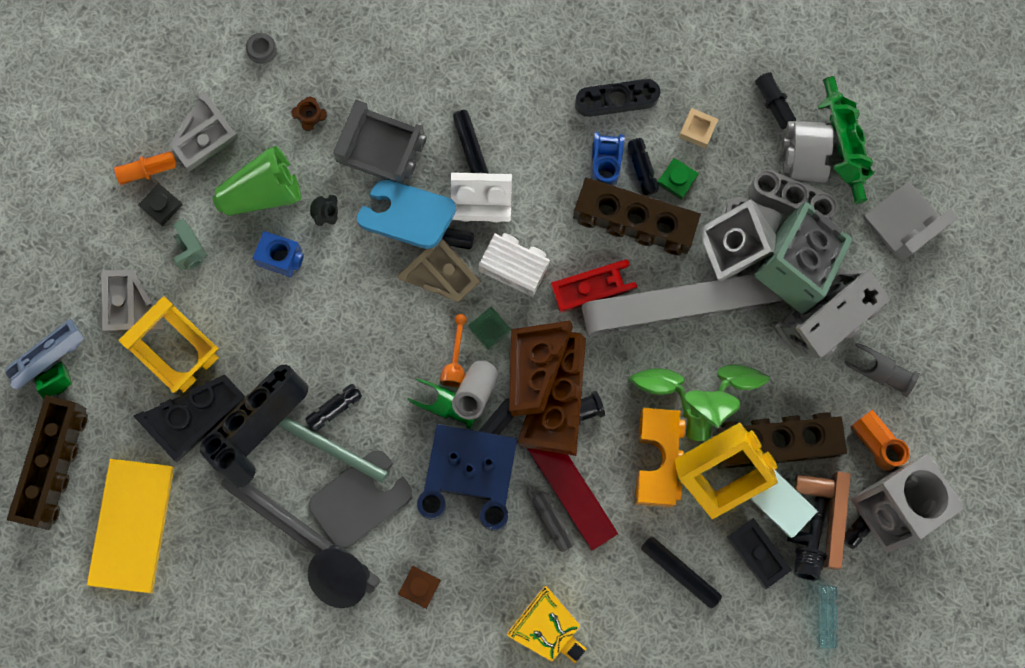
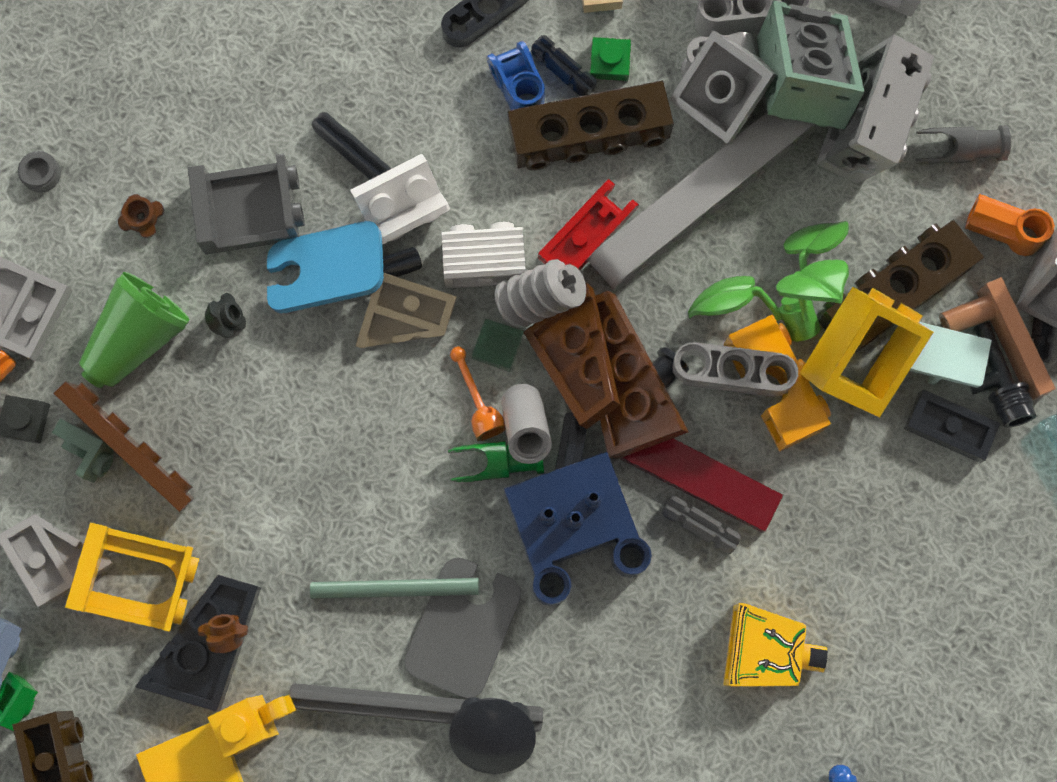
camera: 25 degrees left, 0 degrees up
(189, 479) = (248, 723): none -> yellow brick
(206, 413) = (223, 633): none -> reddish brown plate
(211, 249) = (115, 433): none -> reddish brown wing
(251, 423) = (283, 614): black beam -> none
(269, 245) = (184, 390): blue brick -> none
(333, 407) = (369, 539): black axle -> none
(419, 587) = (593, 690): reddish brown plate -> none
(534, 310) = (540, 293): none -> light grey piece
(623, 418) = (755, 367): none -> light grey beam
(681, 572) = (878, 497): black axle -> none

